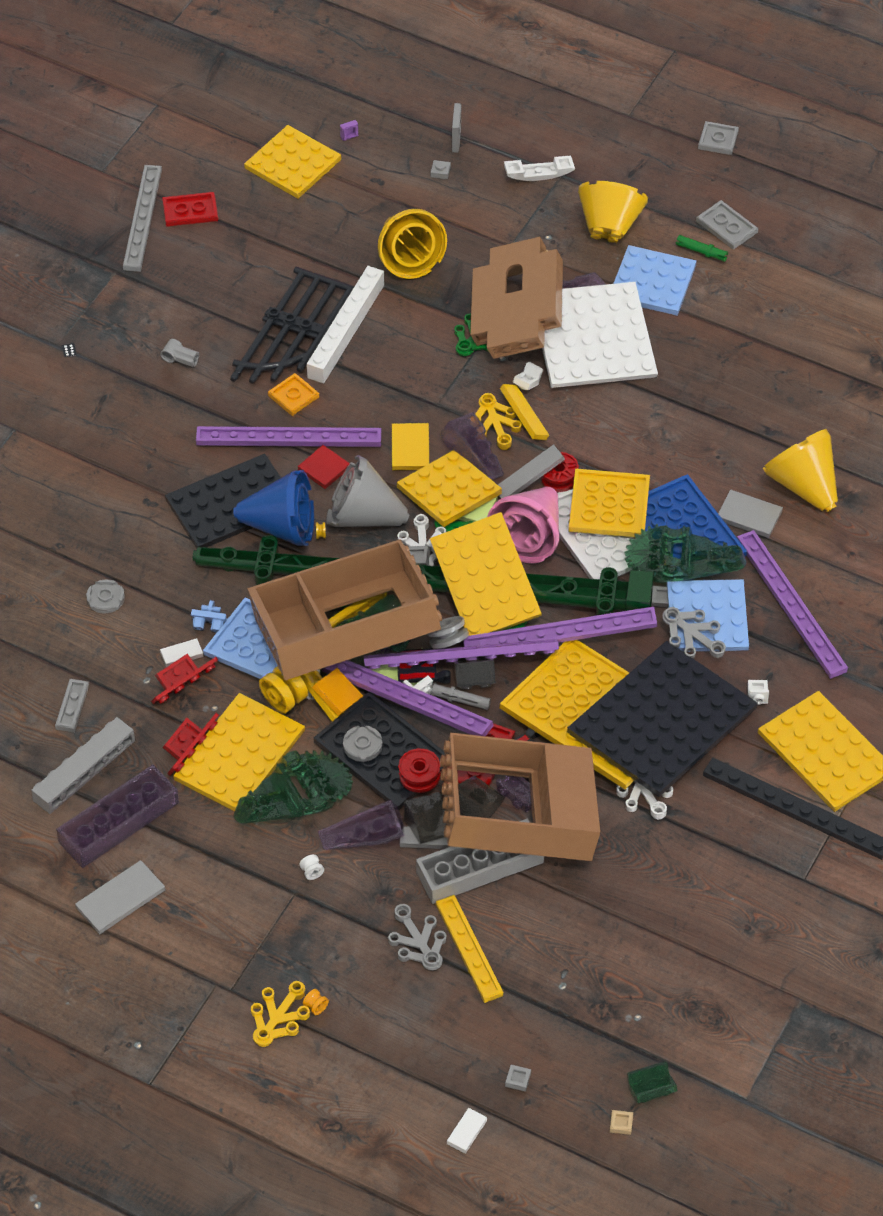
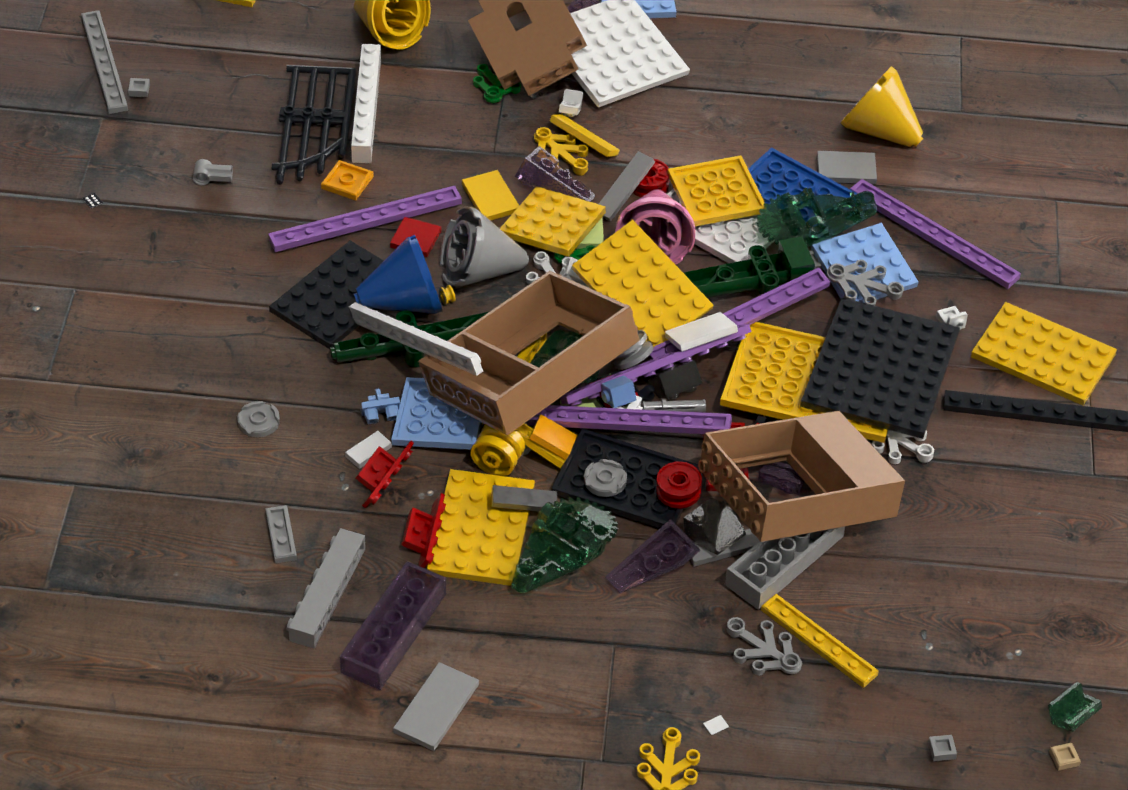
camera: 25 degrees left, 5 degrees down
(158, 252) = (139, 87): none -> light grey plate
(190, 209) = (148, 42): red tile -> none
(256, 568) = (417, 339): none -> white plate
(281, 738) = (521, 498): none -> flat silver tile
(311, 866) = (620, 612): white wheel -> none
(315, 1002) = (699, 742): light orange wheel -> none
(341, 991) = (716, 725): none -> white sticker
(411, 669) = (618, 391): none -> medium blue brick
(513, 635) = (701, 331): none -> white tile

